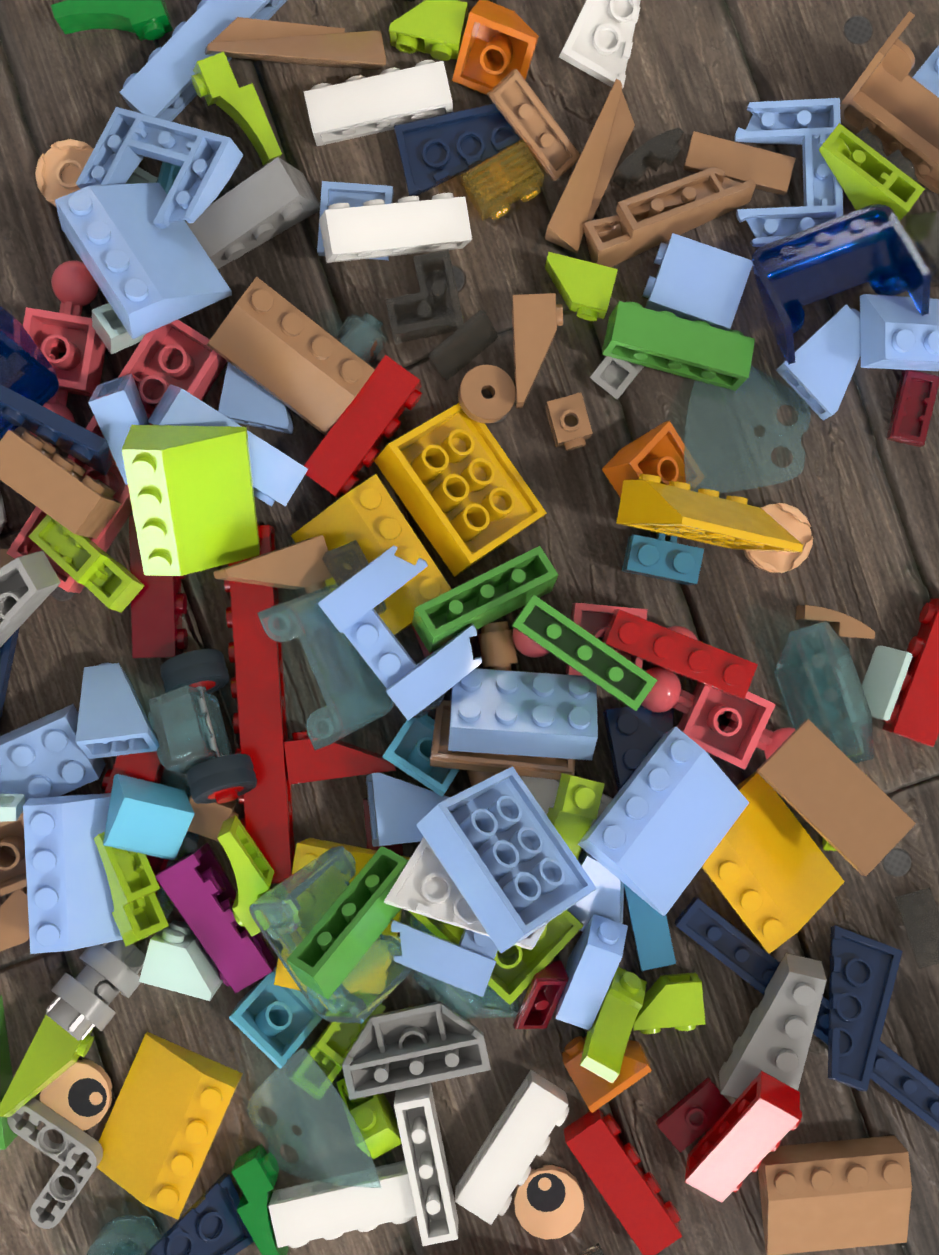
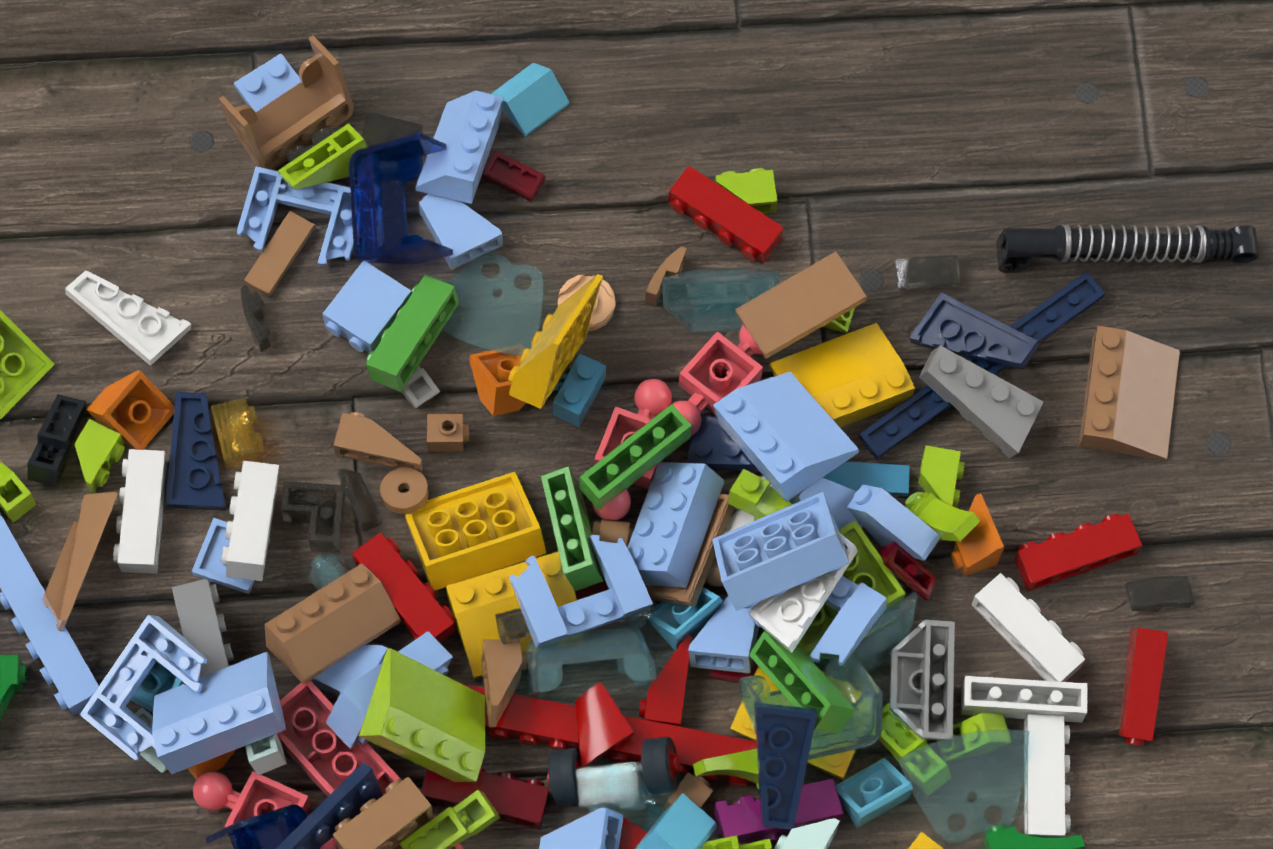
camera: 80 degrees left, 20 degrees down
(61, 167) = (117, 777): light nougat tile -> none
(116, 408) = (339, 757): light blue slope -> none
(218, 85) = (91, 624): lime slope -> none
(248, 926) = (782, 757): none -> dark blue wing
(257, 694) = (599, 724): none -> red slope
(534, 124) = (202, 394): medium nougat tile -> none
(549, 1202) = (1084, 616): light nougat tile -> none
(582, 284) = (340, 394): lime slope -> none
(592, 172) = (251, 363): medium nougat wedge -> none
(658, 213) = (303, 320): medium nougat wedge -> none
(679, 653) = (657, 386): red brick -> none
(693, 1114) = (1037, 484): dark red plate -> none
(743, 1137) = (1055, 443): brick -> none
(885, 680) = (722, 250): light aqua slope -> none

